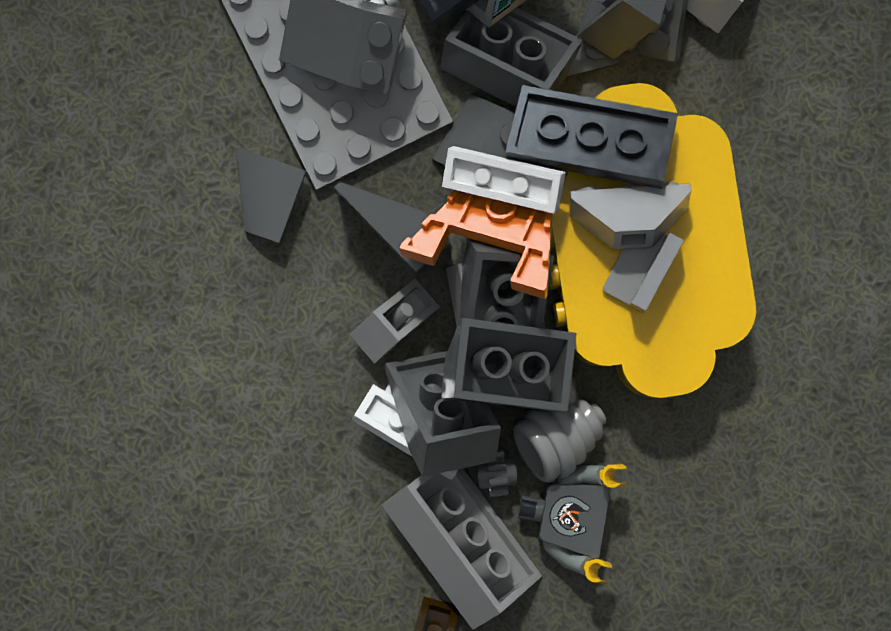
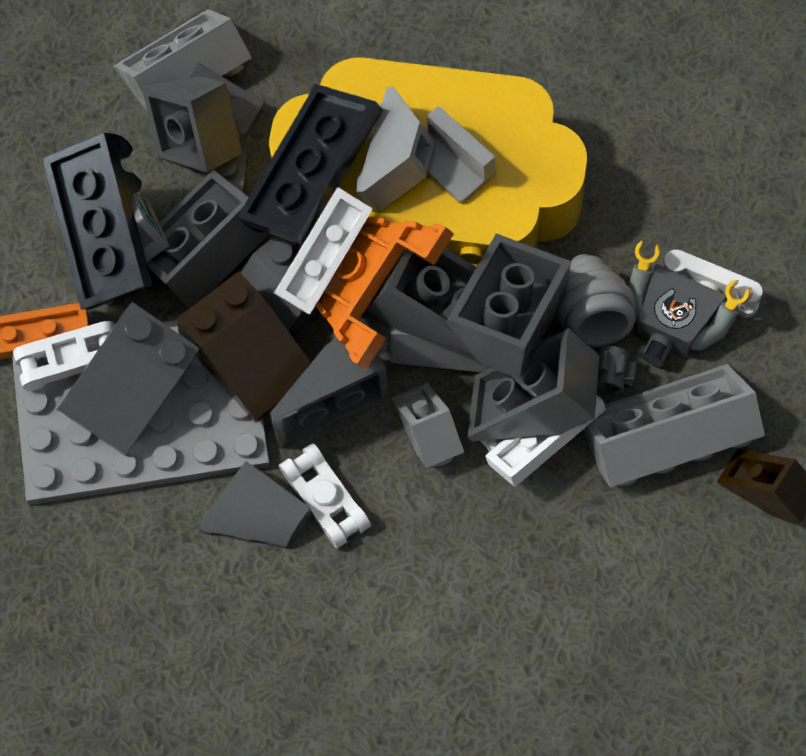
camera: 65 degrees left, 20 degrees down
(301, 250) = (325, 496): none -> white plate
(409, 134) = (244, 345): none -> dark brown slope
(615, 540) = (715, 278): none -> white plate

